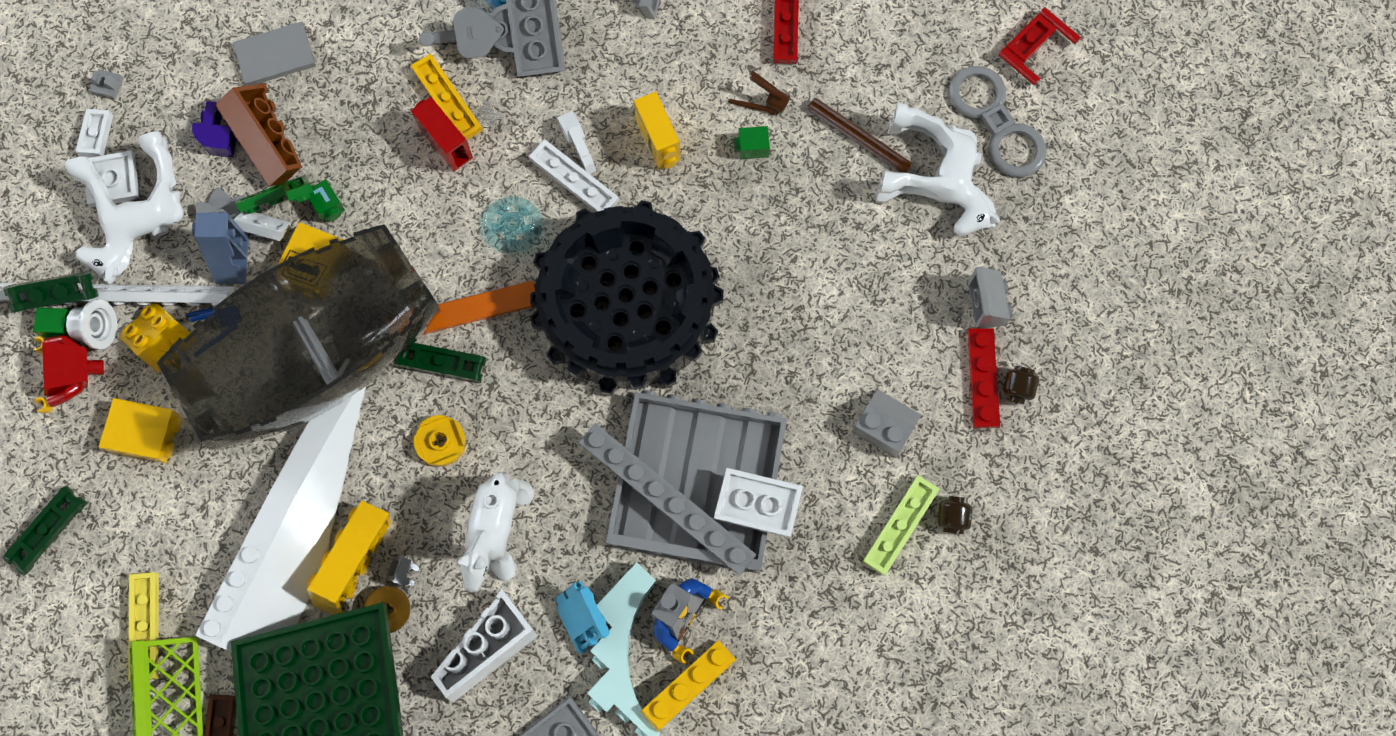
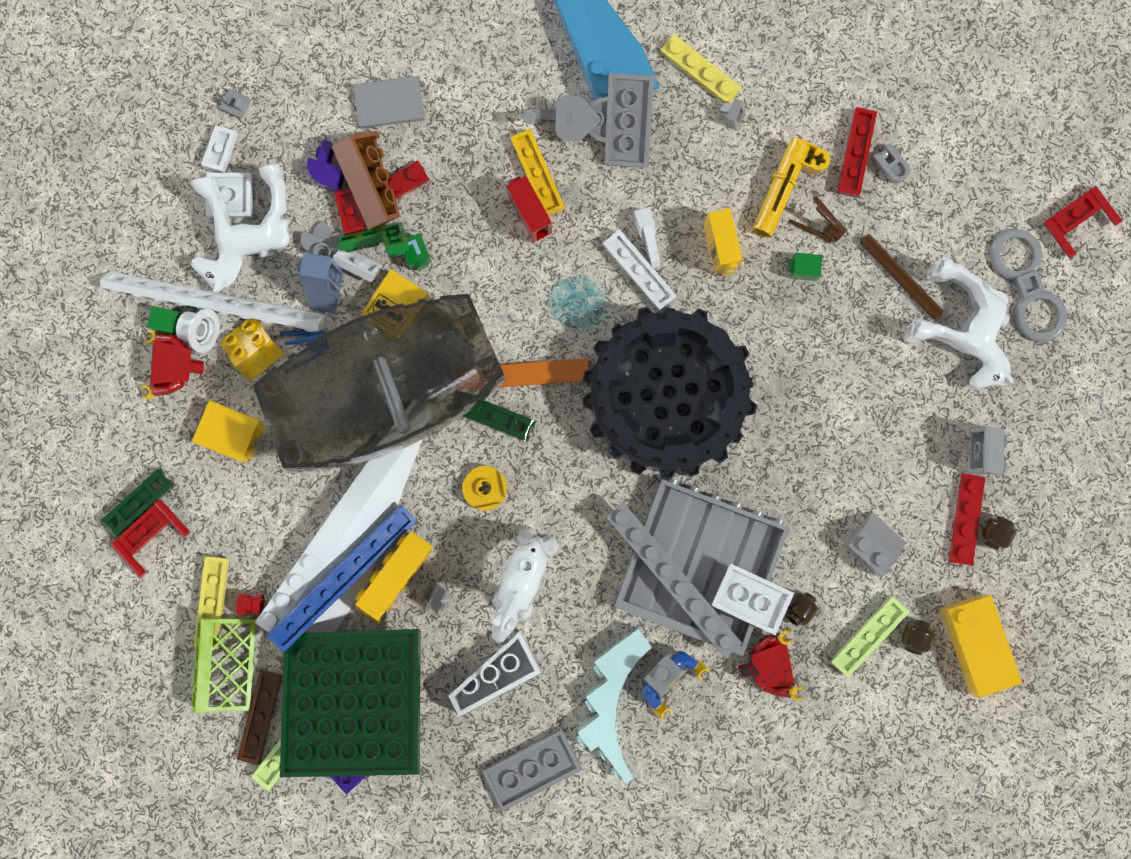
camera: 10 degrees right, 10 degrees up
(51, 291) = (166, 294): dark green plate -> none
(56, 559) = (144, 531): none -> red plate
(187, 619) = (250, 604): none -> red wheel
(246, 173) = (349, 212): none -> red plate
(287, 567) = (341, 578): none -> blue plate
(306, 129) = (408, 179): none -> red plate
(397, 600) = (428, 621): pearl gold piece -> none
(581, 616) = (583, 666): medium azure plate -> none
(688, 686) = (663, 741): yellow plate -> none
(718, 37) = (795, 162): none -> yellow piece
(797, 577) = (772, 666): none -> red torso
(817, 508) = (801, 609): none -> dark brown head
(831, 29) = (895, 171): none -> light grey plate
(1026, 510) = (981, 645): none -> yellow brick

